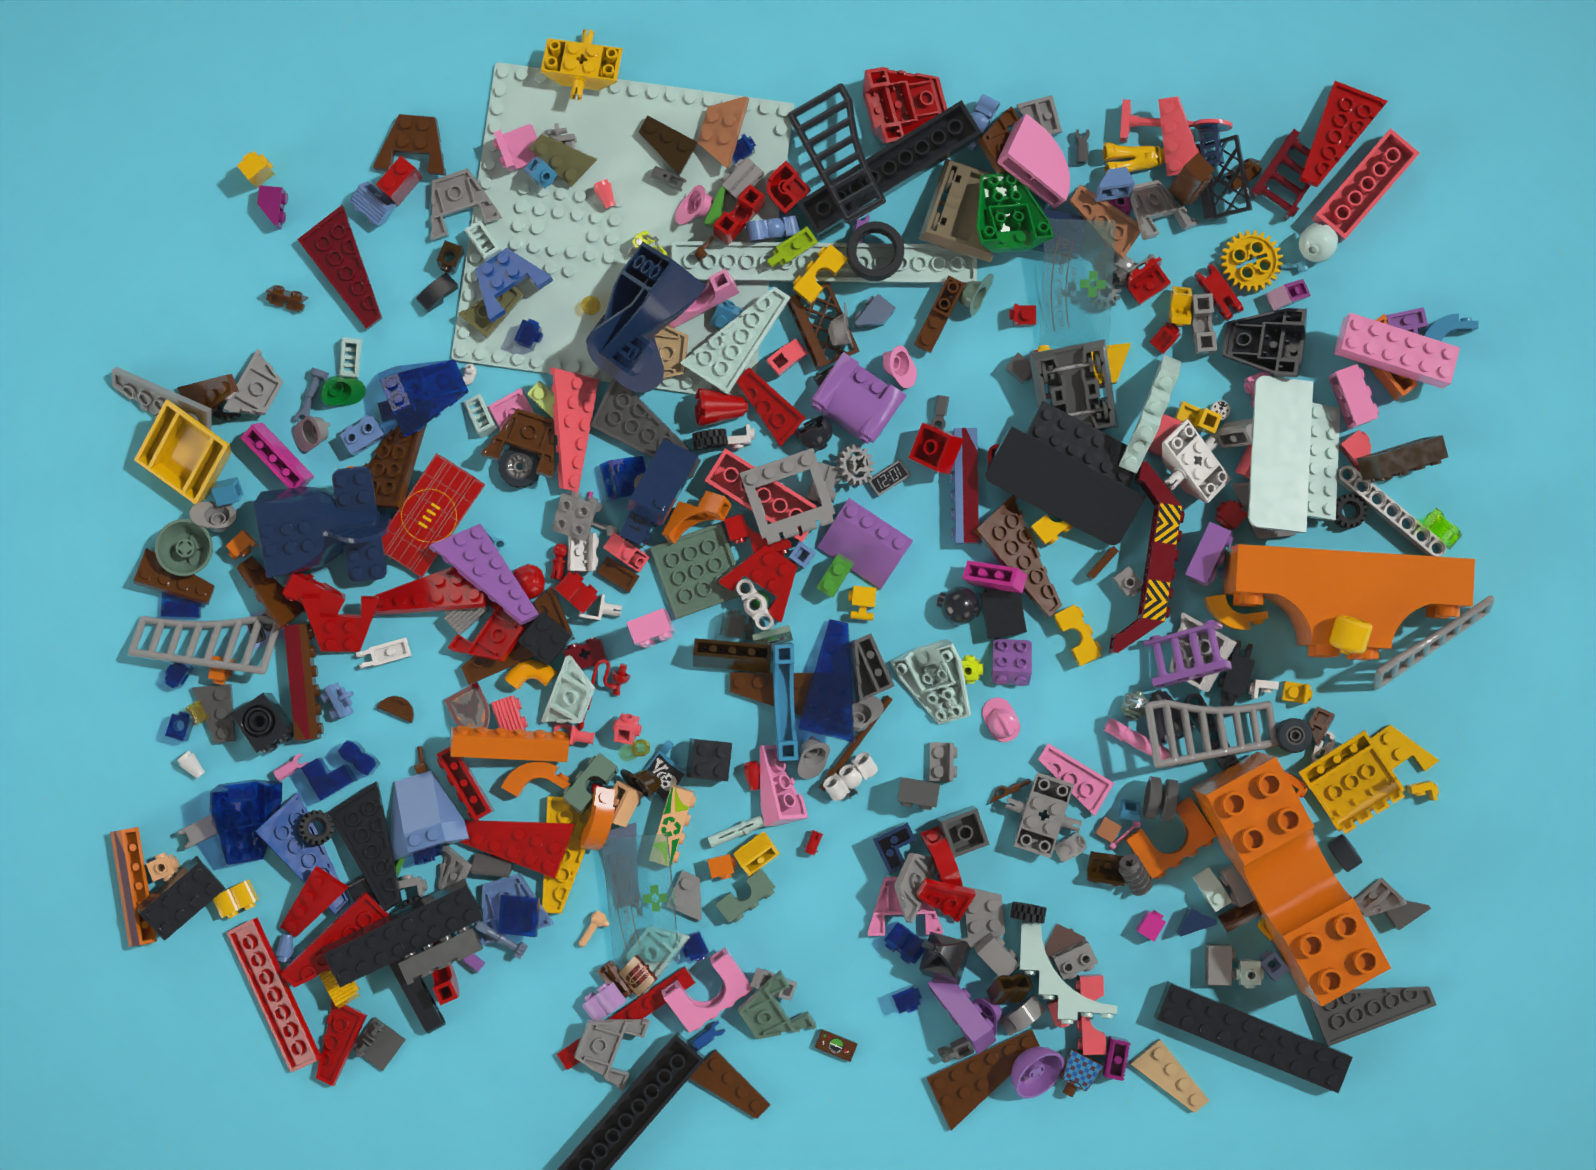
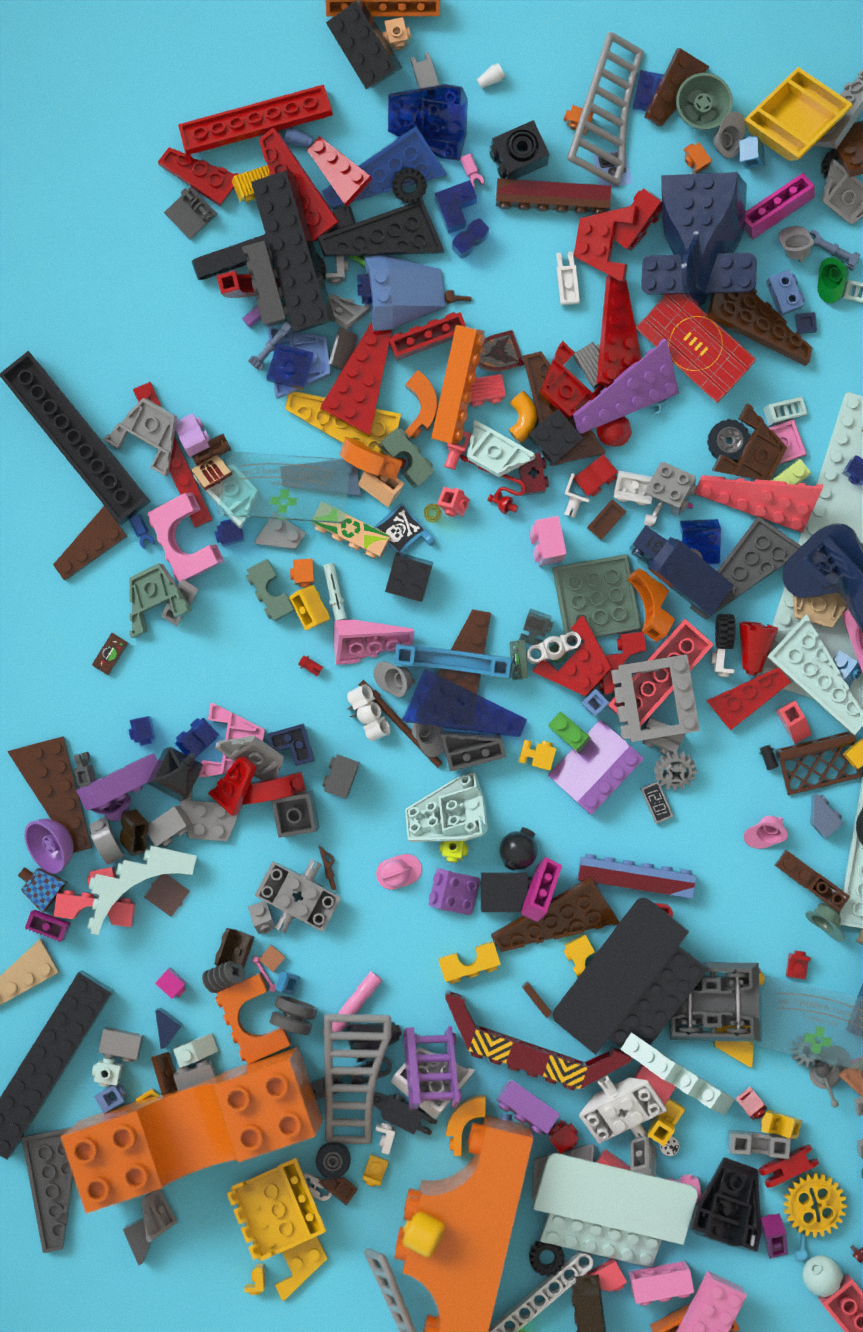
camera: 90 degrees right, 0 degrees up
(172, 730) = (526, 64): clear blue brick -> none
(177, 674) = (580, 77): clear blue brick -> none
(197, 712) = (540, 90): clear yellow bush -> none
(218, 703) = (544, 109): dark grey wing -> none
(236, 898) = (354, 98): yellow brick -> none
(269, 593) = (646, 176): reddish brown wing -> none
(339, 699) = (530, 228): medium blue hips -> none
(398, 706) = (513, 284): reddish brown tile -> none
(421, 392) = (818, 356): clear blue wedge -> none
(469, 374) = (825, 405): white arm -> none
(560, 551) = (639, 466): red pin -> none
(597, 920) = (272, 443): light nougat piece -> none
(626, 552) = (626, 530): coral slope -> none
(643, 781) = (399, 510): dark brown piece -> none
(732, 655) = (507, 616): dark brown brick -> none
(752, 774) = (387, 617): red cone -> none
(815, 433) = (712, 736): black cylinder -> none
(839, 329) = (813, 779): light grey piece -> none
(857, 399) = (740, 783): medium lavender piece -> none
(936, 448) = (678, 853): red brick -> none
(940, 409) = (716, 865): dark grey bar -> none
(941, 761) = (367, 805): light grey bracket -> none
(1020, 368) = (744, 952): dark grey brick -> none
(1028, 912) = (205, 864): black tyre -> none
(1074, 960) = (150, 901): light grey brick -> none
(1089, 786) = (319, 946): bright pink wing -> none
(1128, 582) = (513, 1021): light grey brick -> none
(1134, 705) = (390, 1005): head -> none
(1147, 281) = (811, 1095): red bracket -> none
(1297, 782) = (286, 1153): orange bracket -> none
(1344, 852) = (208, 1189): black wheel -> none

